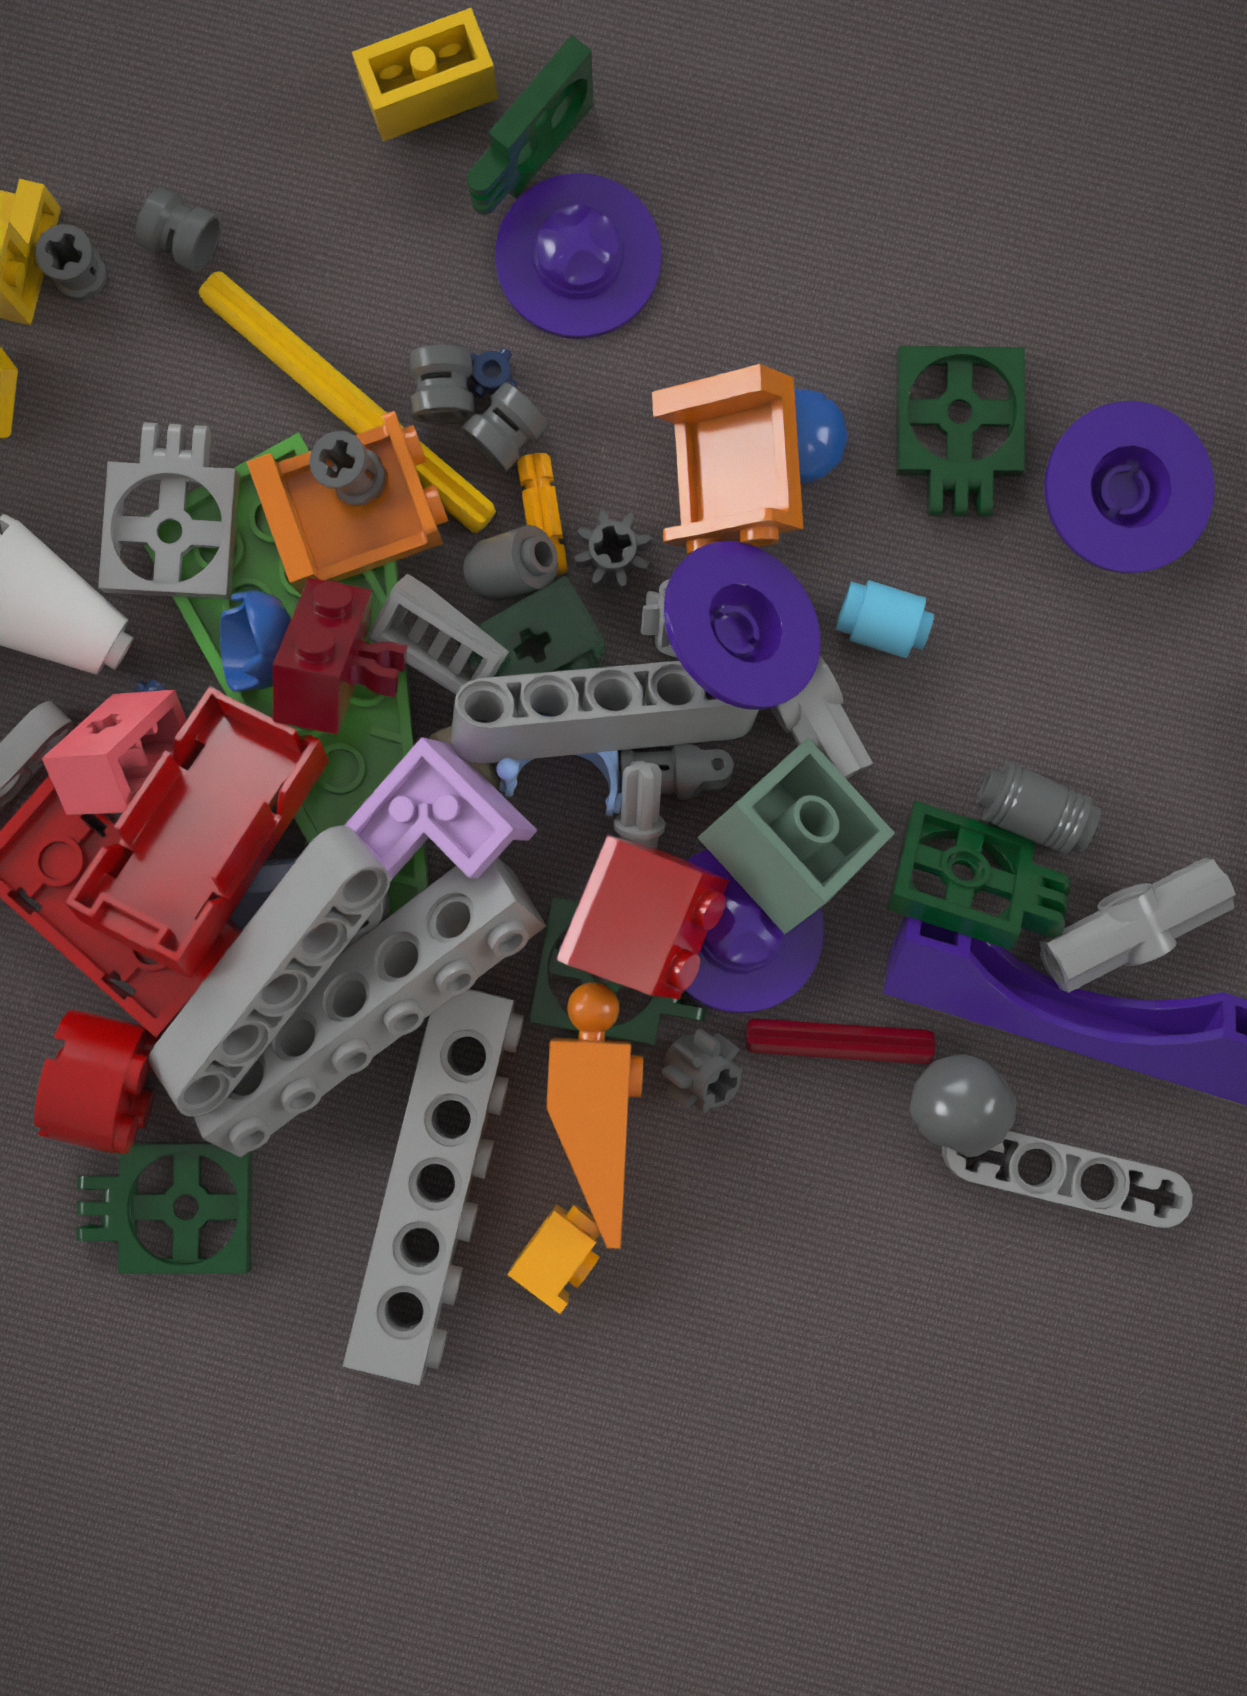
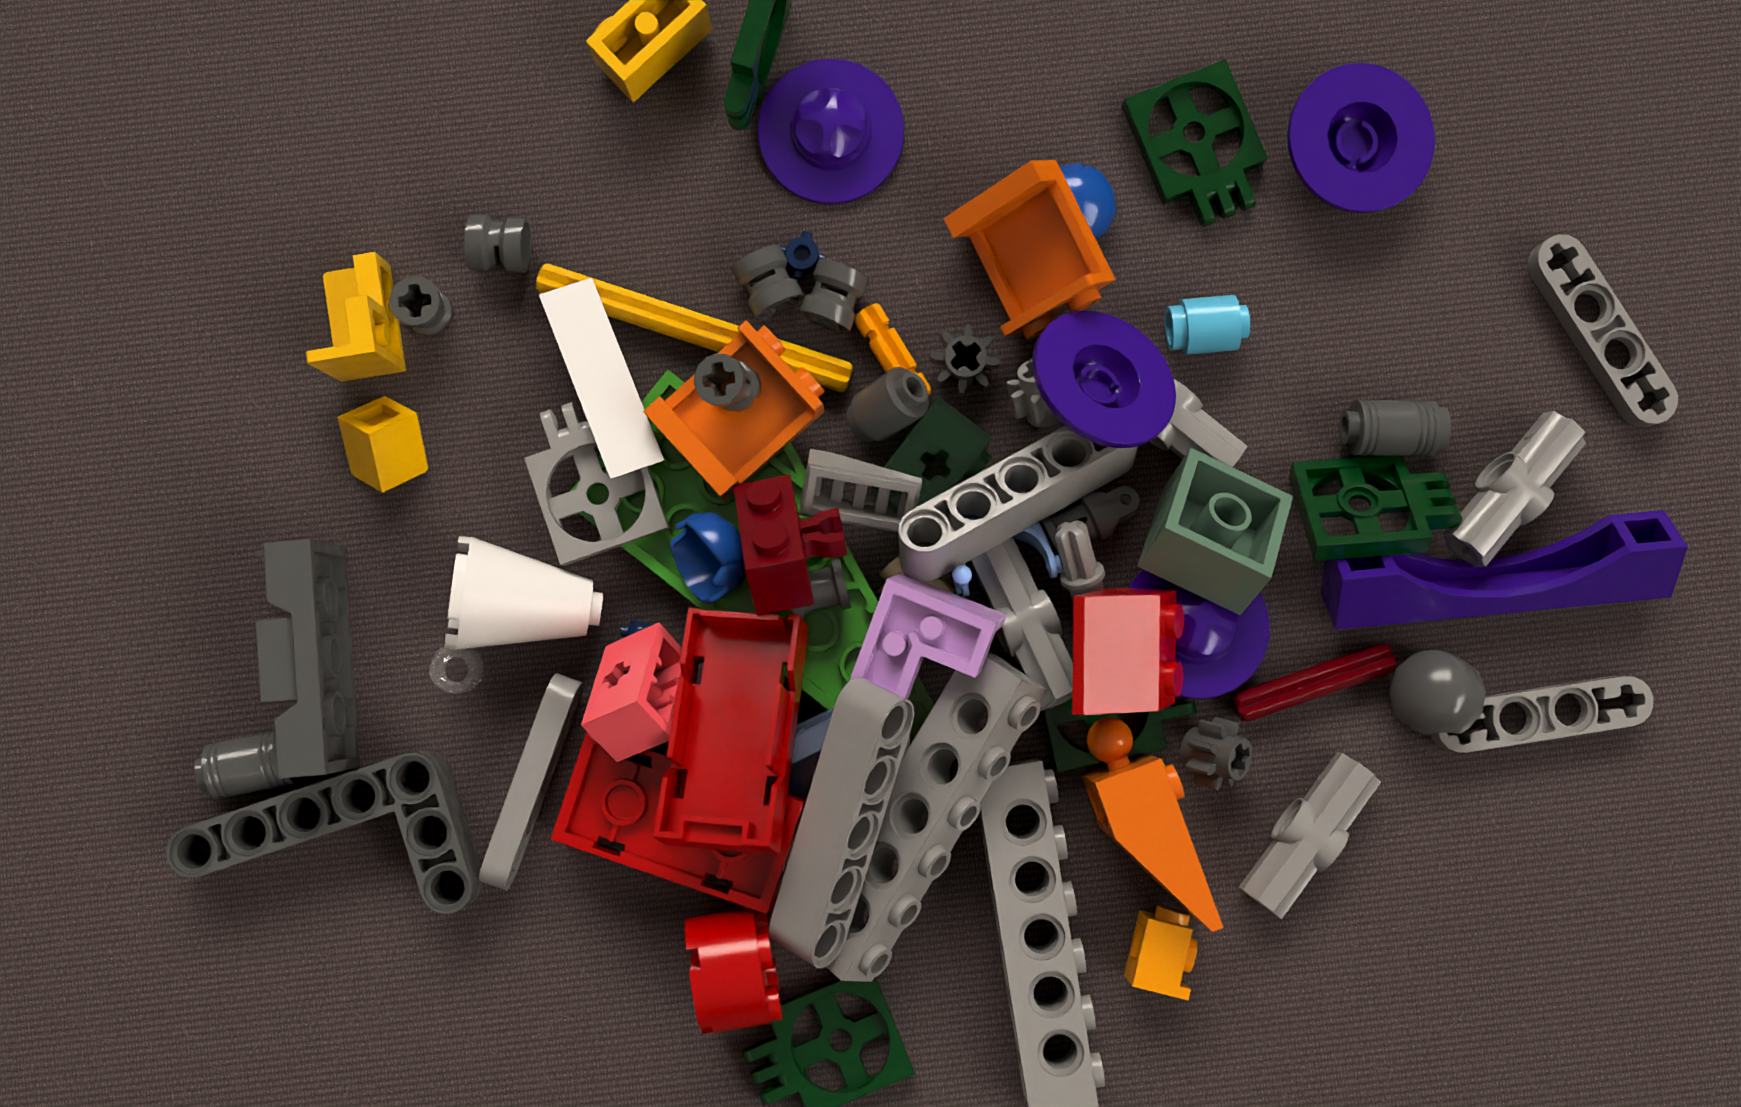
camera: 25 degrees left, 0 degrees up
(223, 411) = (601, 378): none -> white sticker
(363, 727) = (827, 588): none -> dark grey bush
(562, 846) = (1031, 622): none -> light grey piece
(766, 1198) = (1310, 834): none -> light grey piece

